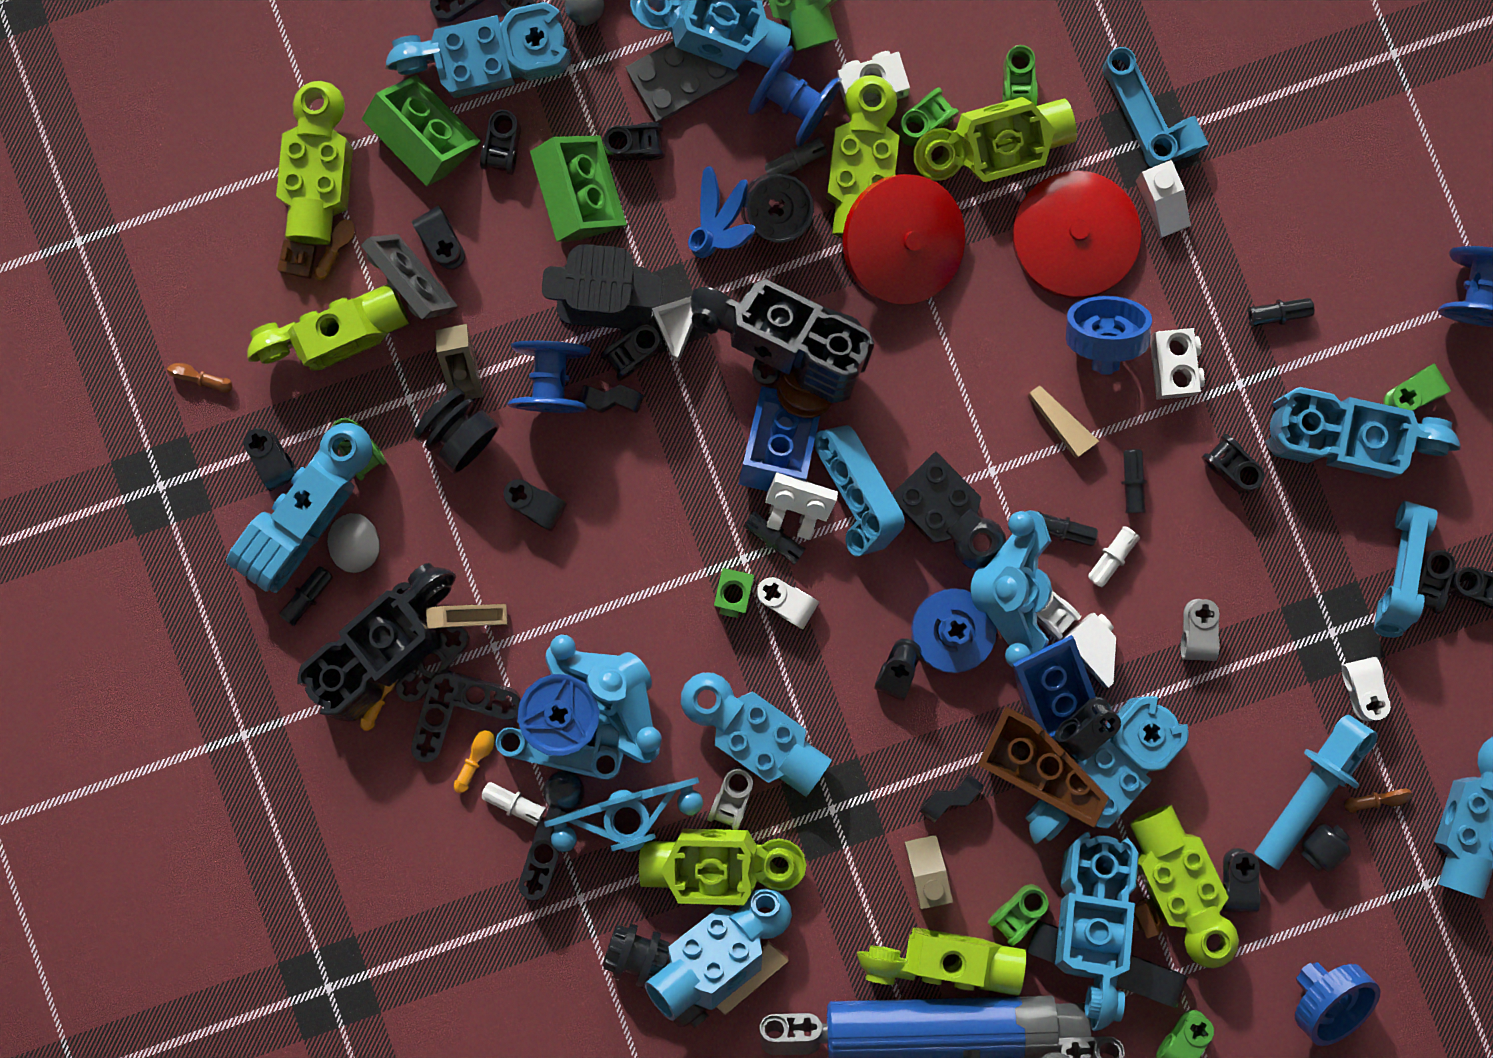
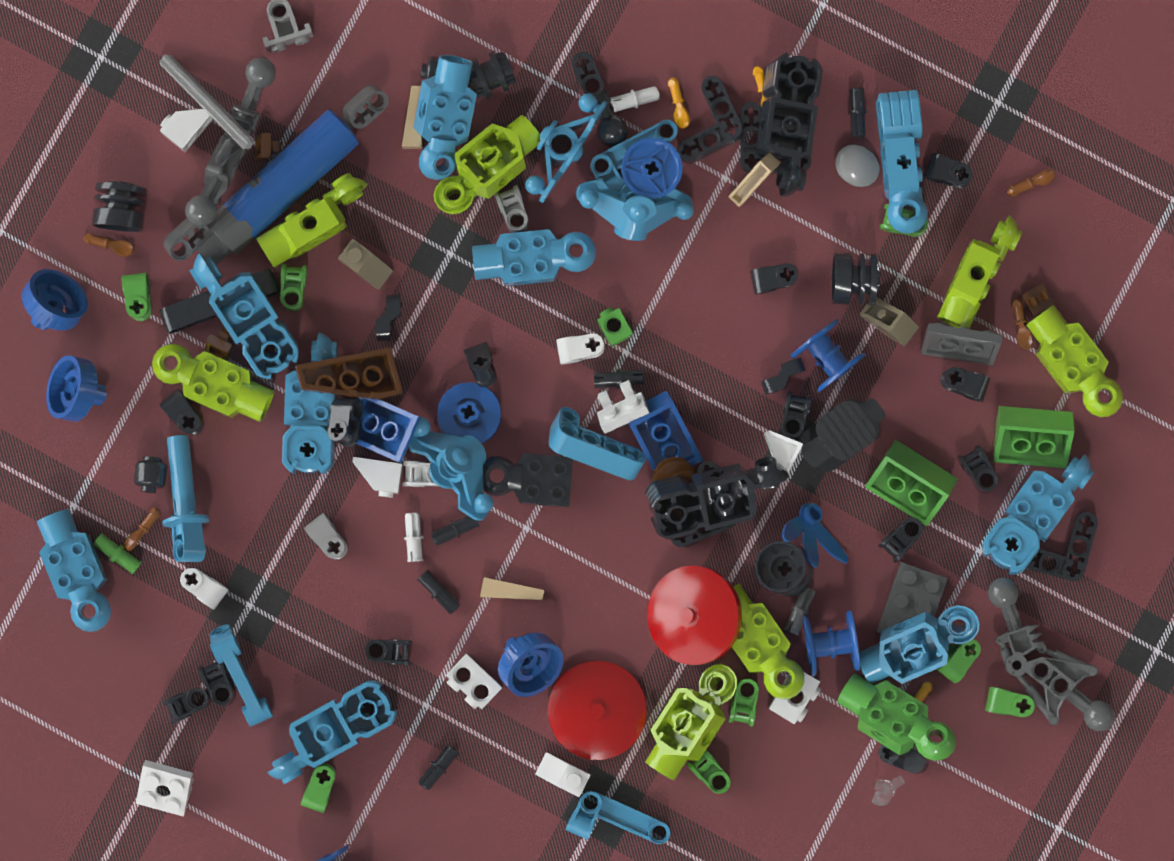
camera: 130 degrees right, 0 degrees up
(1425, 797) = (117, 553): none -> bright green pin

